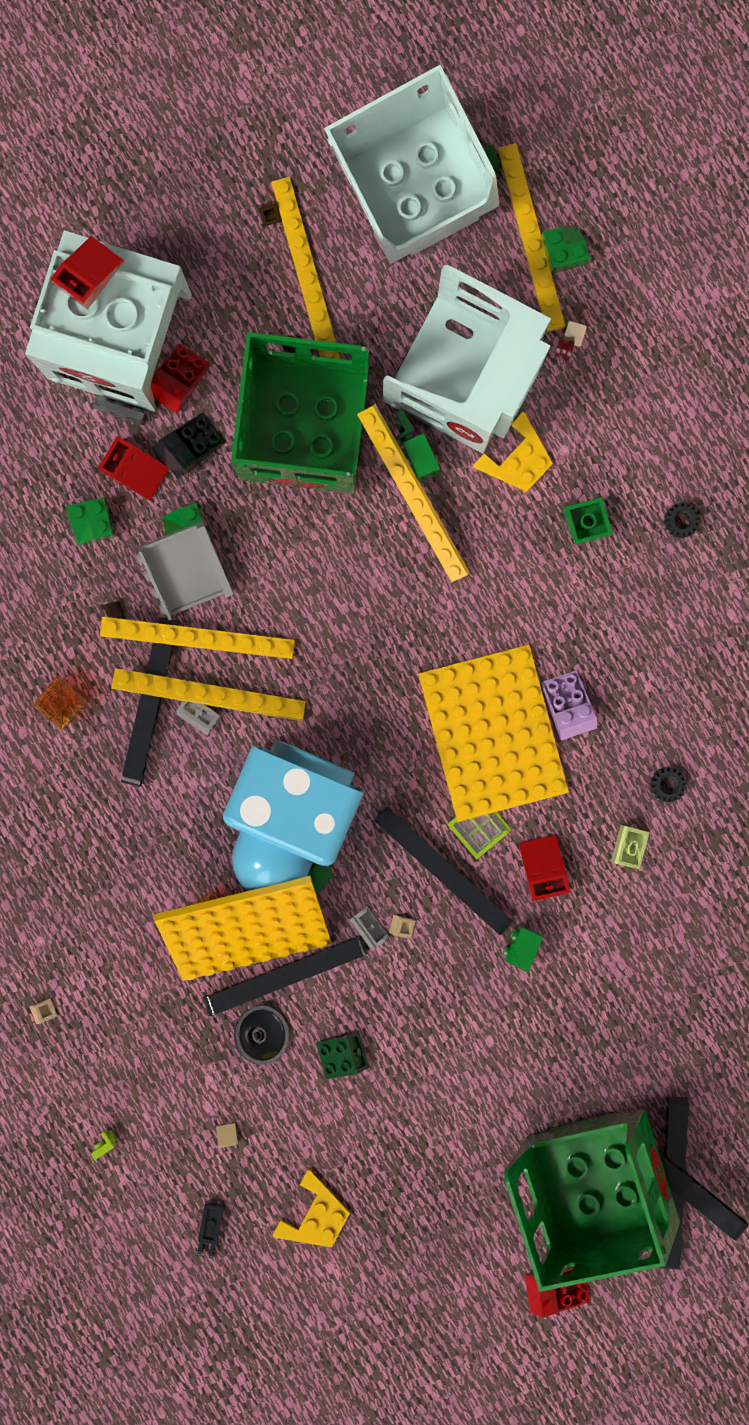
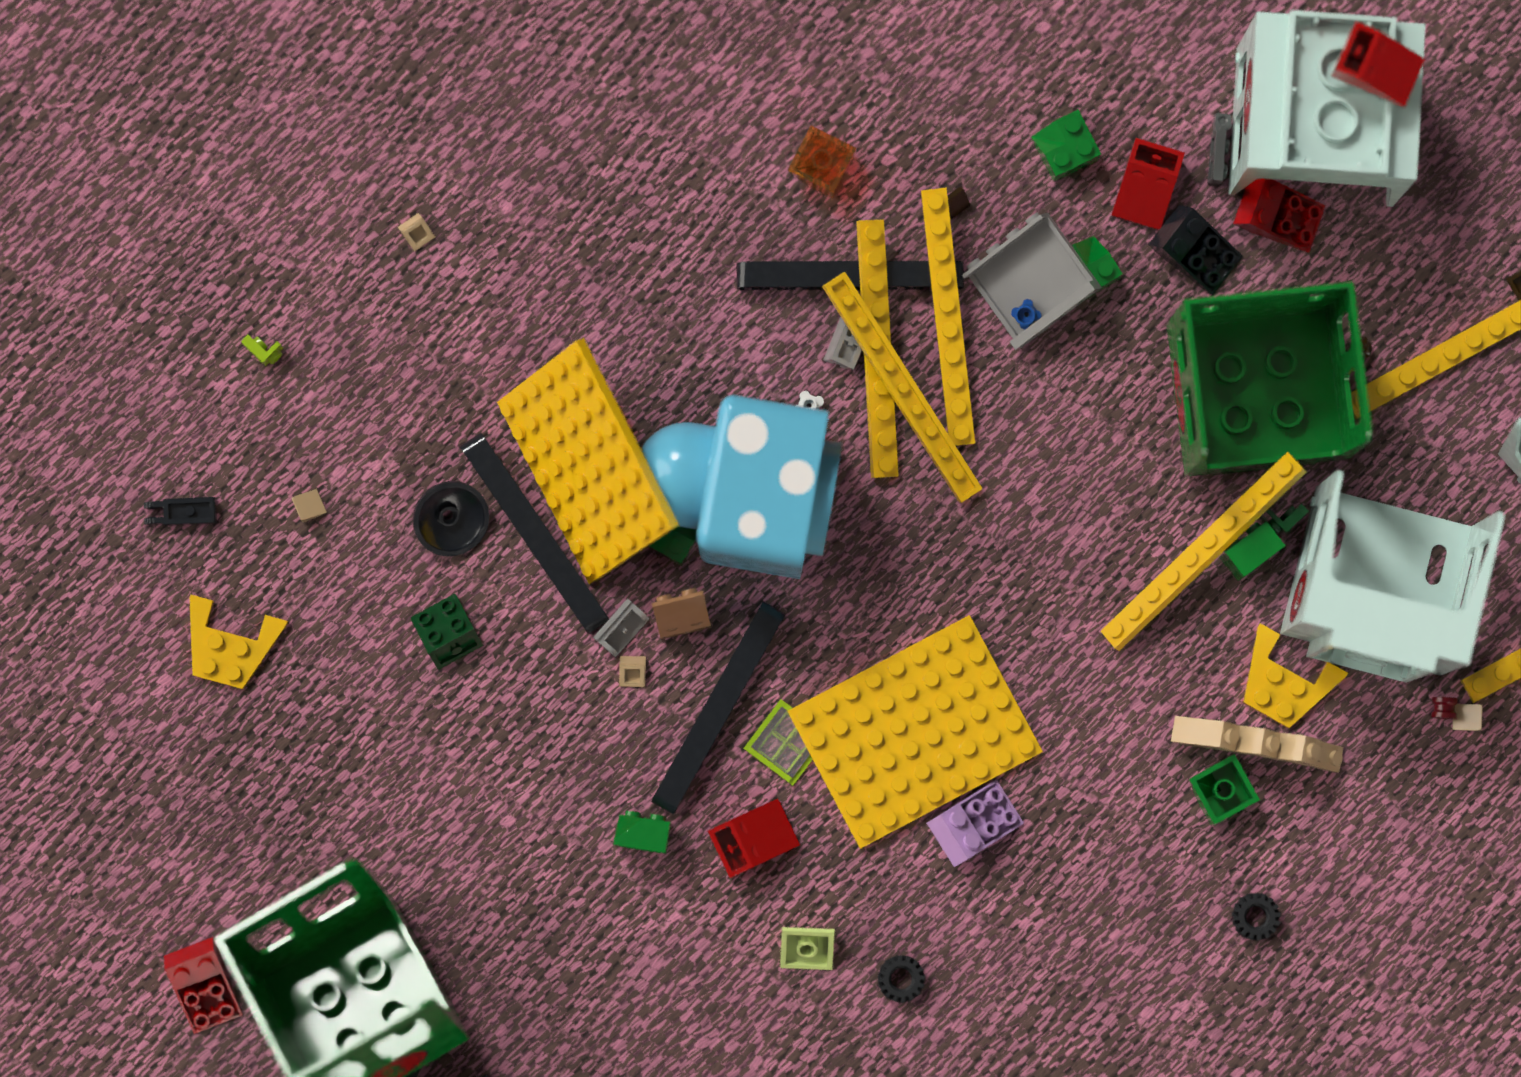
camera: 75 degrees right, 5 degrees down
(209, 575) = (1018, 314): none -> blue plate
(233, 754) = (806, 398): none -> white plate
(241, 684) = (902, 387): none -> yellow plate
(371, 883) = (681, 614): none -> medium nougat slope
(560, 489) = (1257, 742): none -> tan arch

